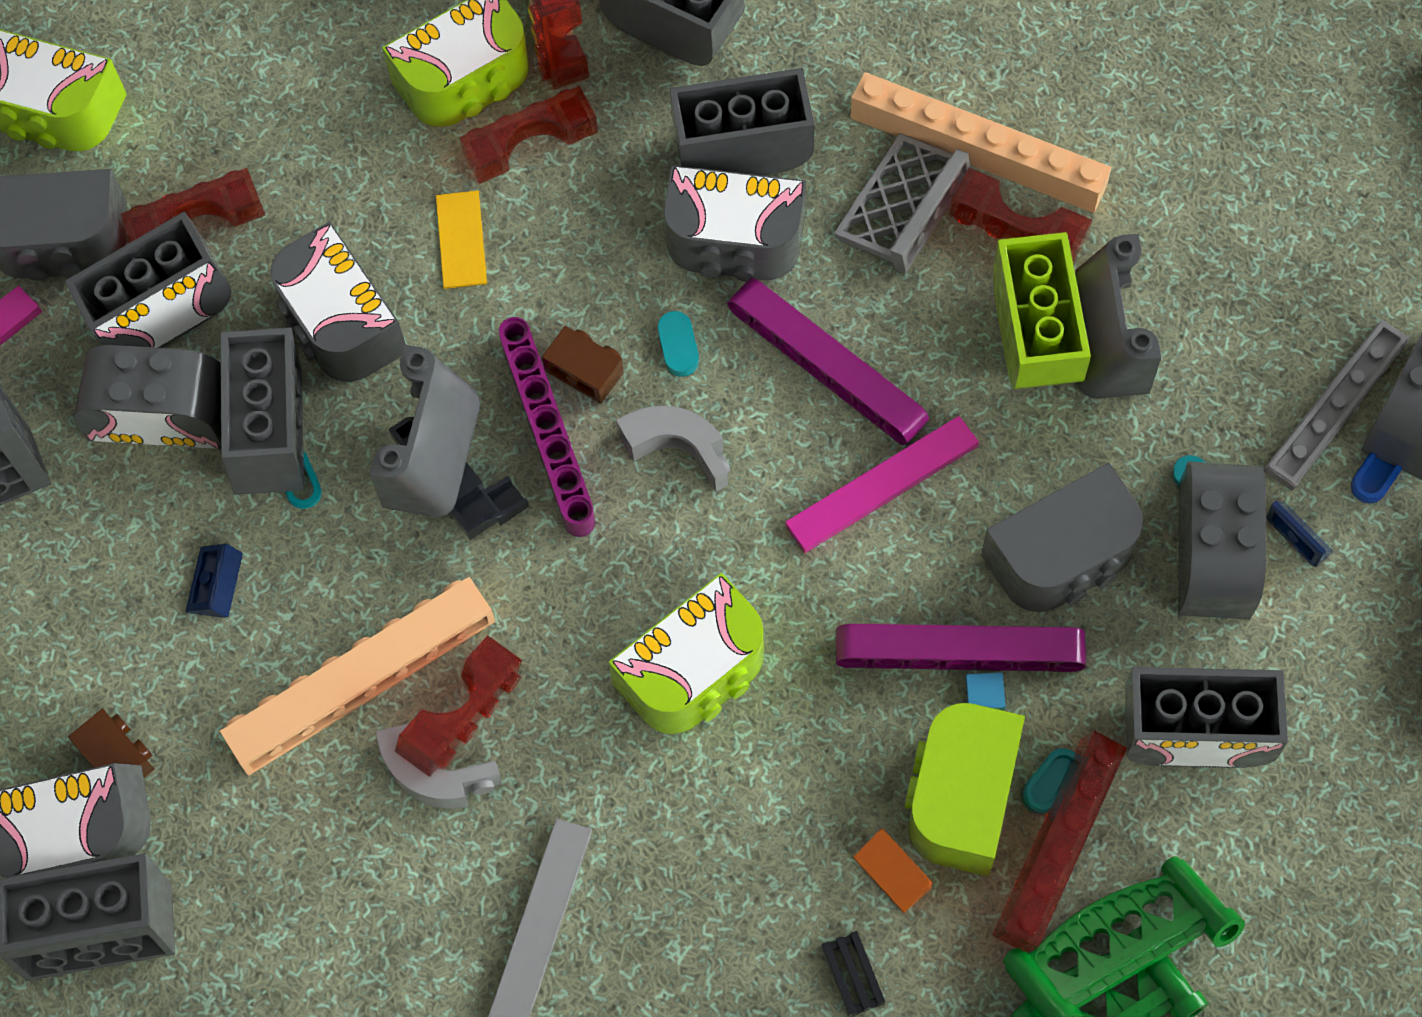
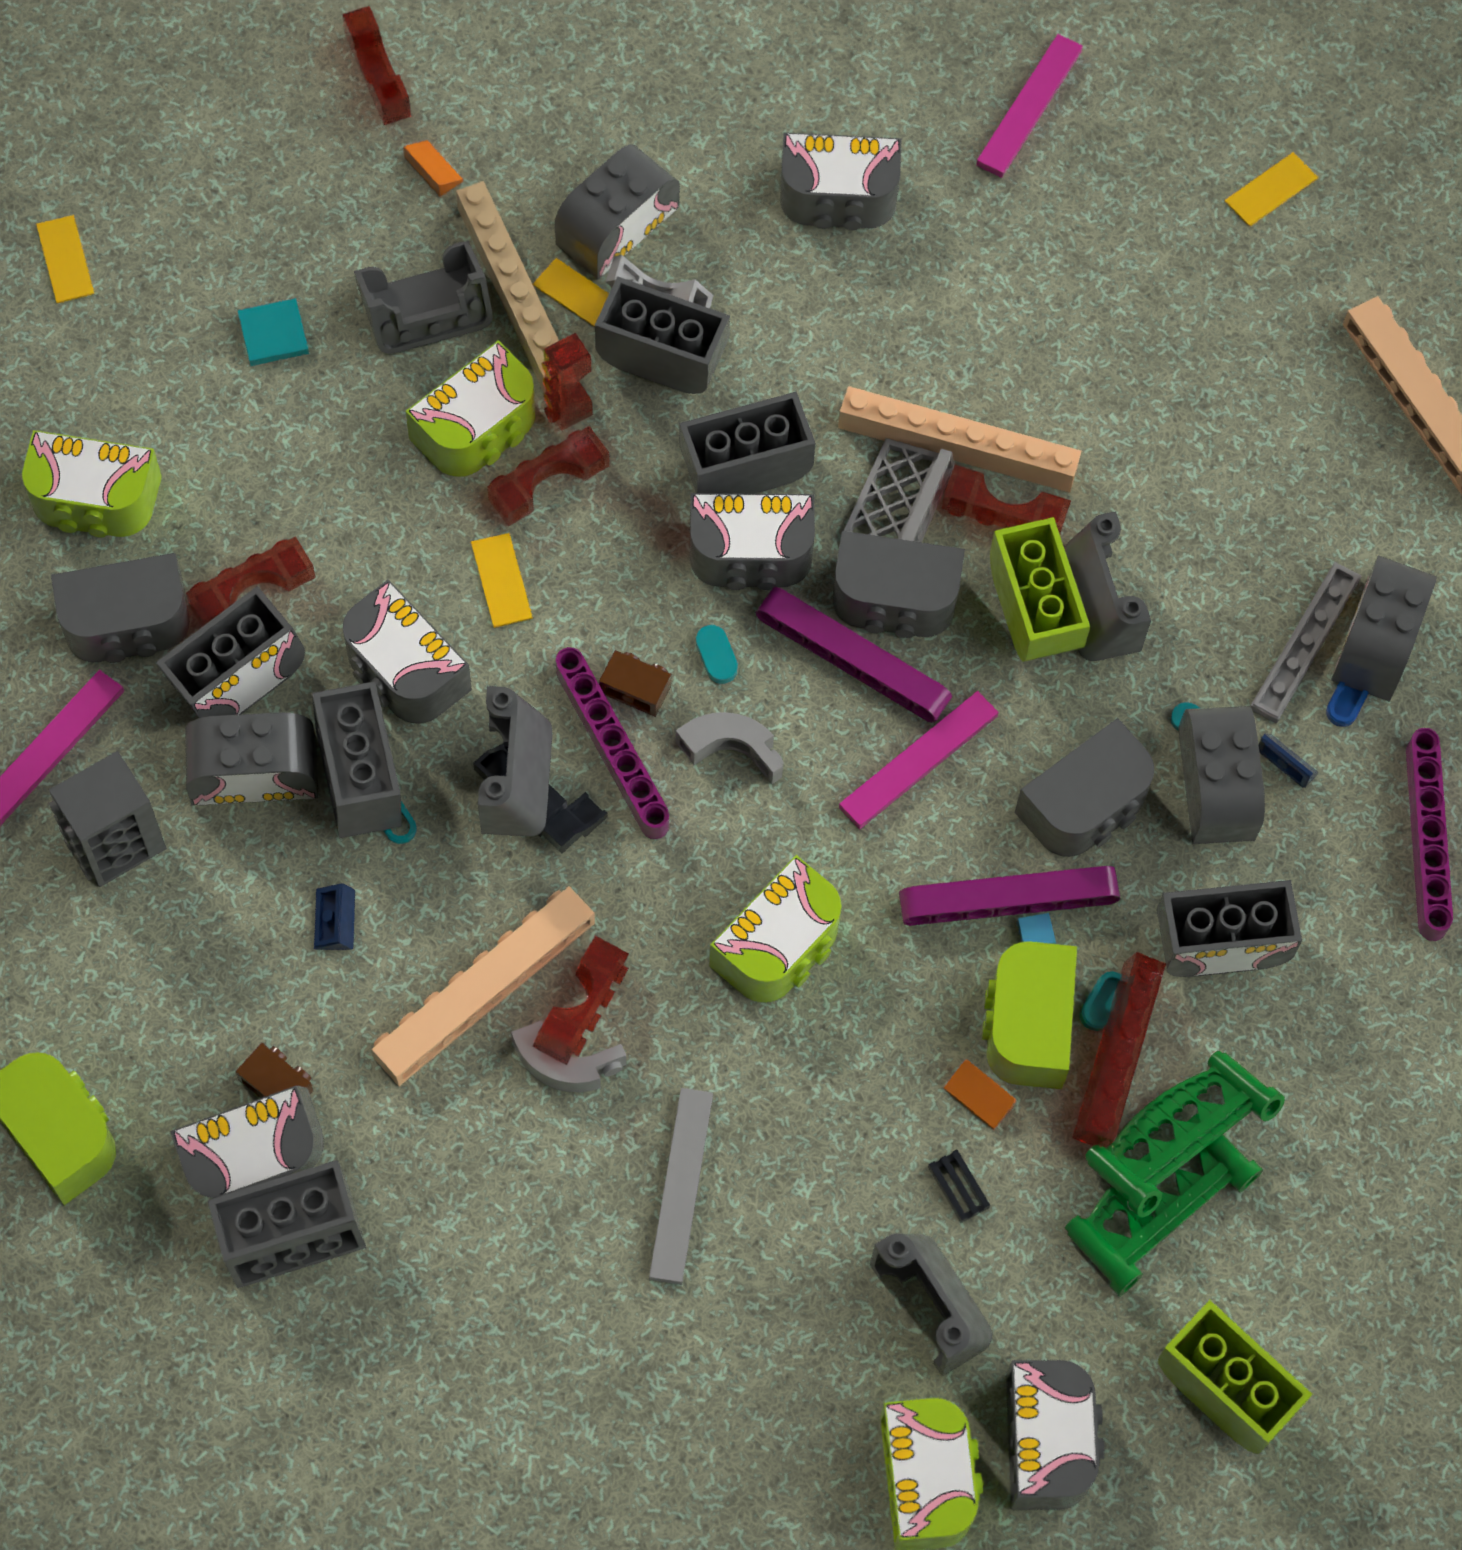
camera: 15 degrees left, 0 degrees up
(885, 289) = (896, 584): none -> dark grey brick

